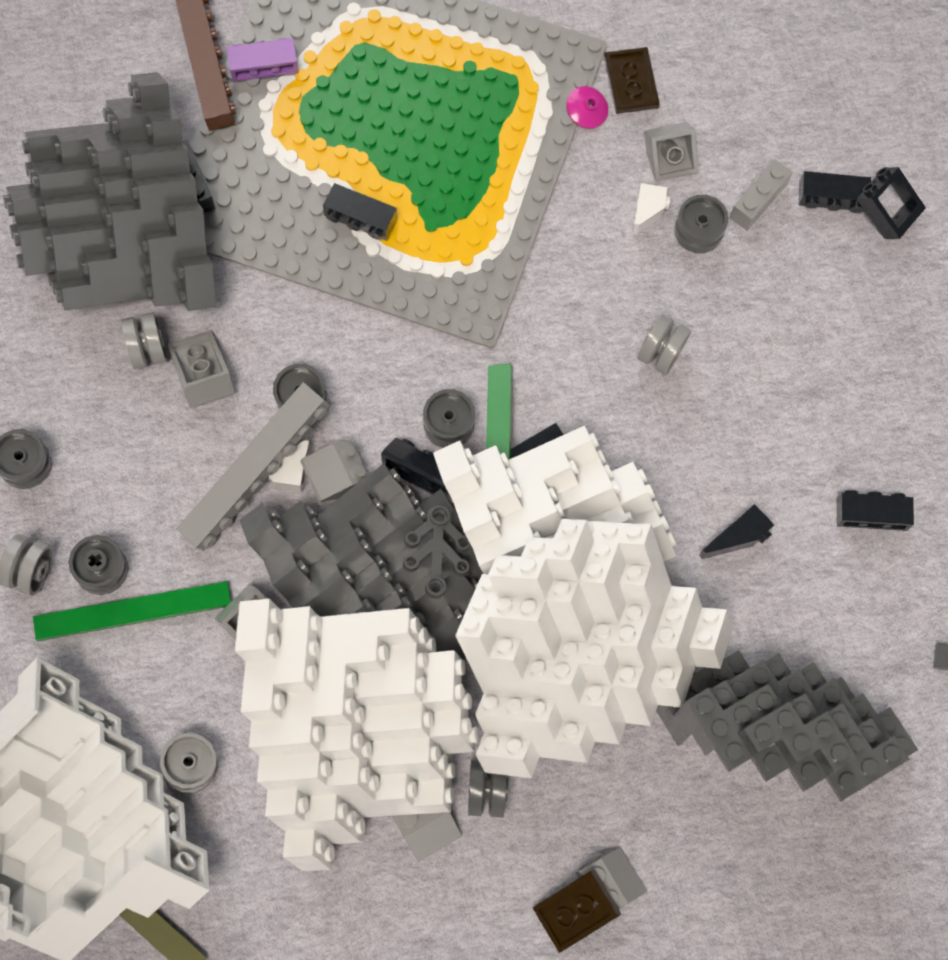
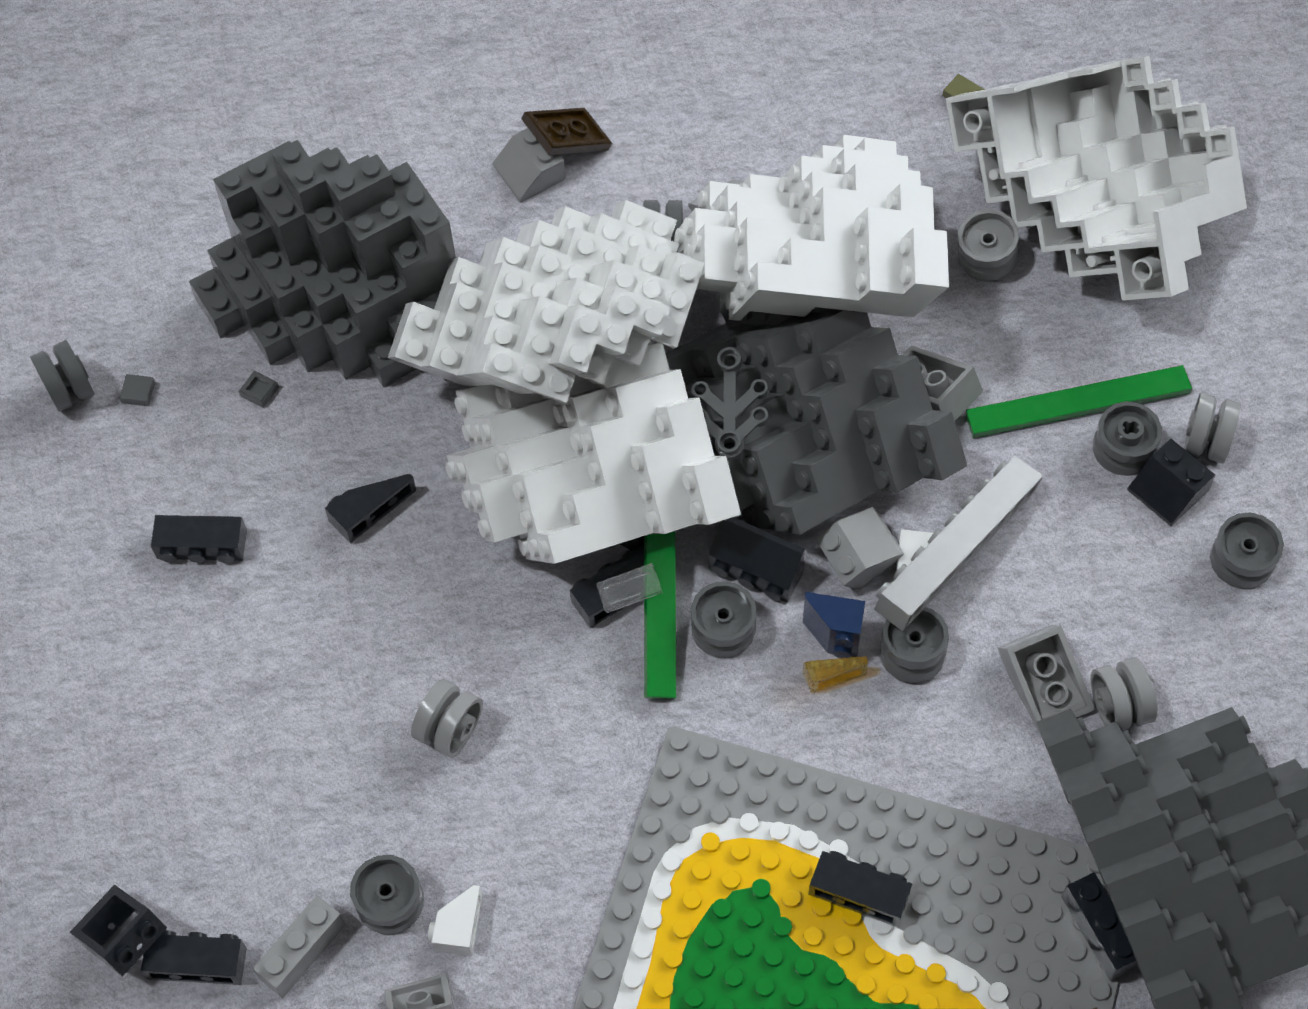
camera: 175 degrees left, 10 degrees down
(67, 524) = (1171, 482): none -> black slope
(359, 408) = (834, 622): none -> dark blue slope
(368, 377) = (831, 672): none -> clear yellow slope
(523, 436) = (629, 588): none -> clear tile
(842, 654) = (258, 389): none -> dark grey tile

